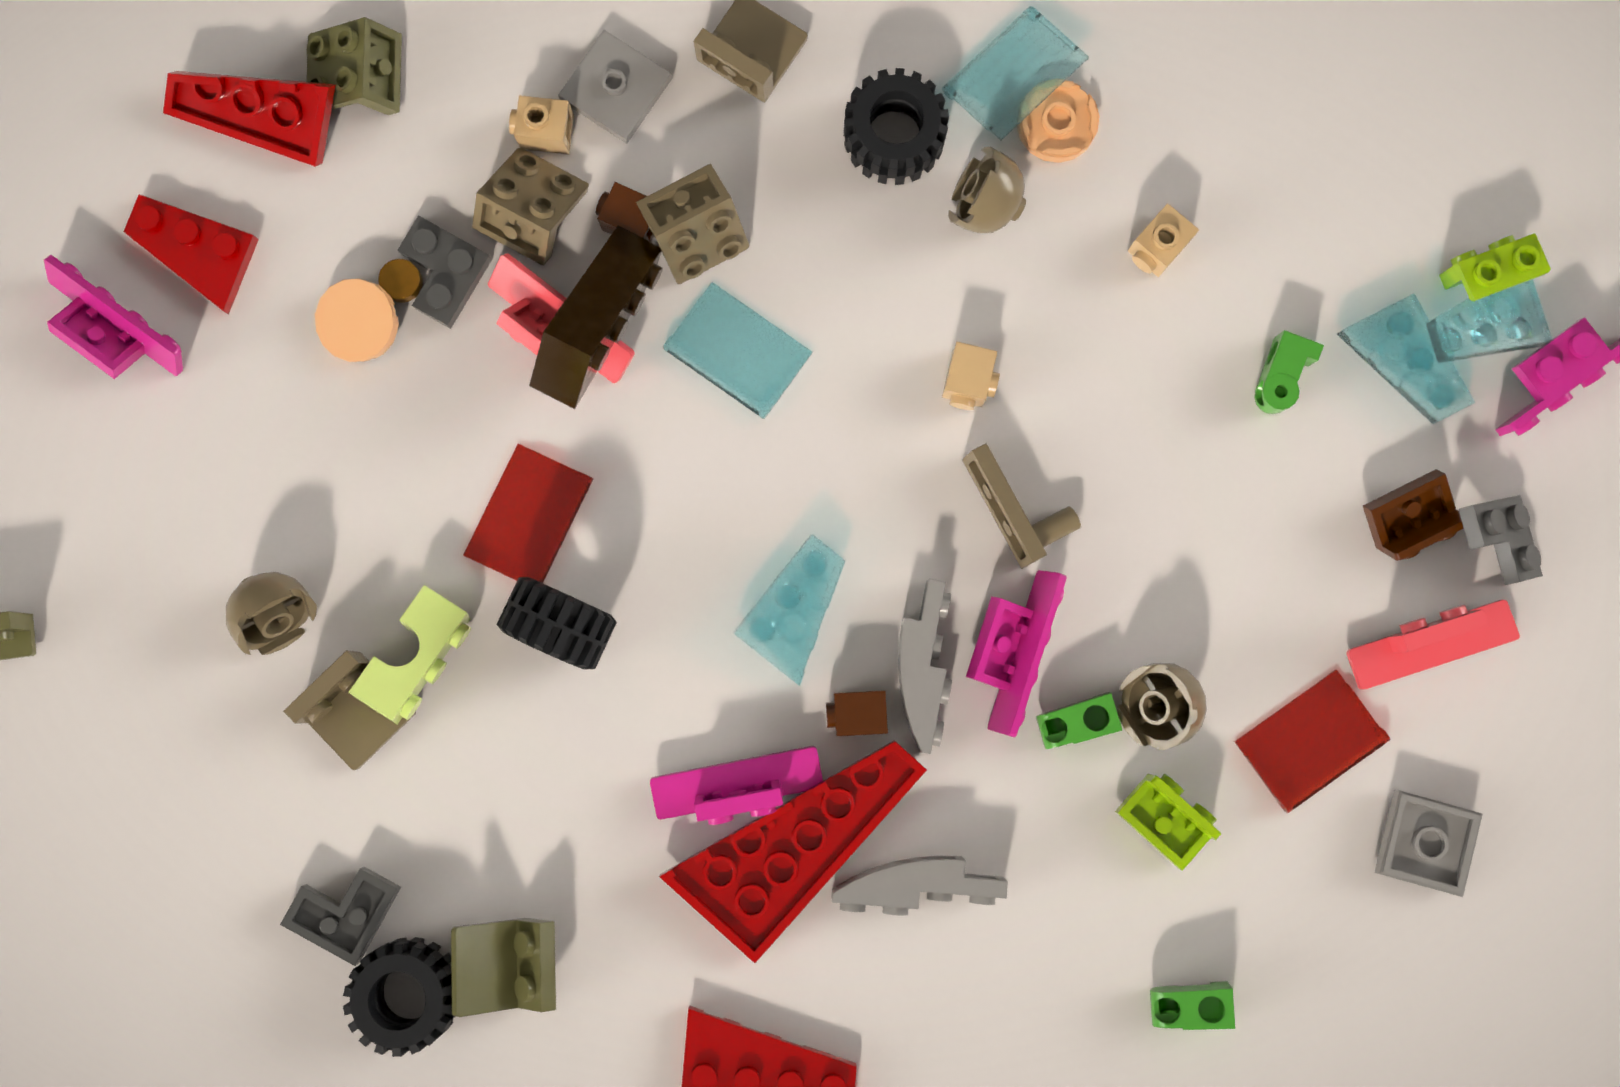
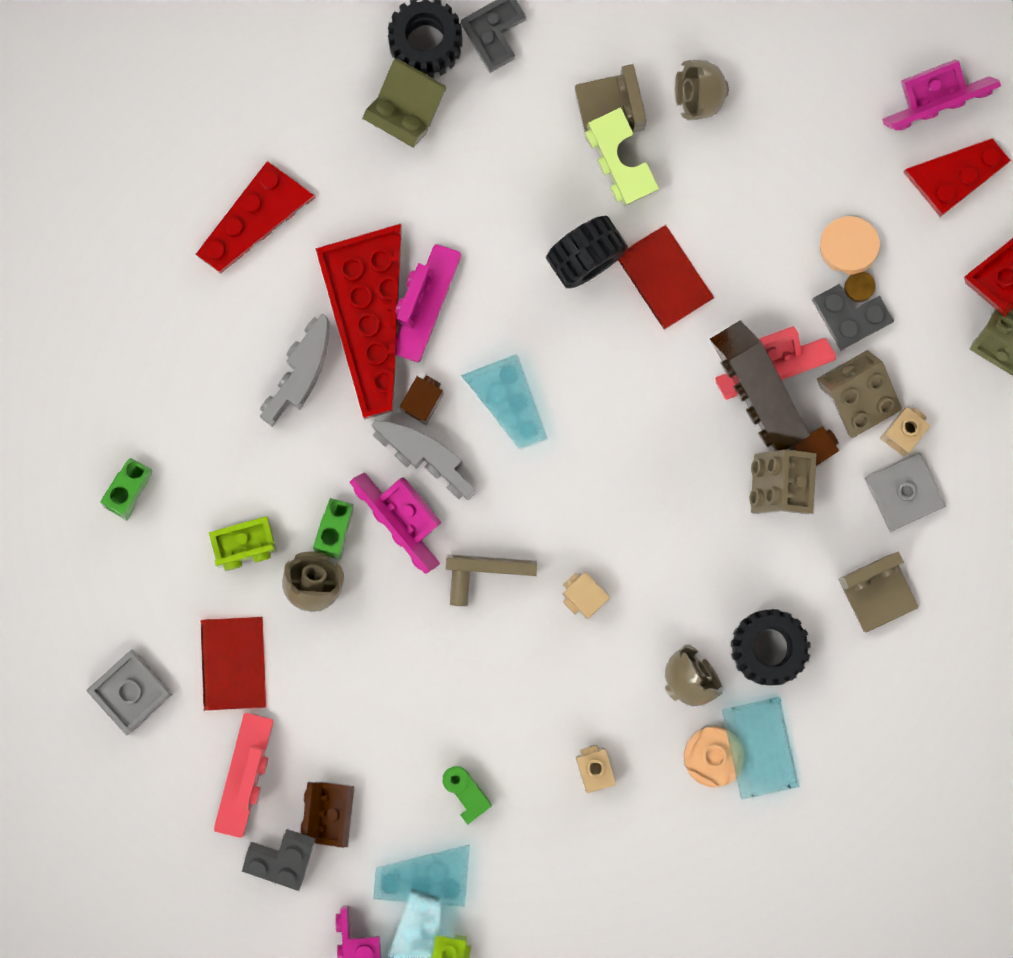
camera: 120 degrees right, 0 degrees up
(737, 350) = (690, 465): clear light blue piece -> none

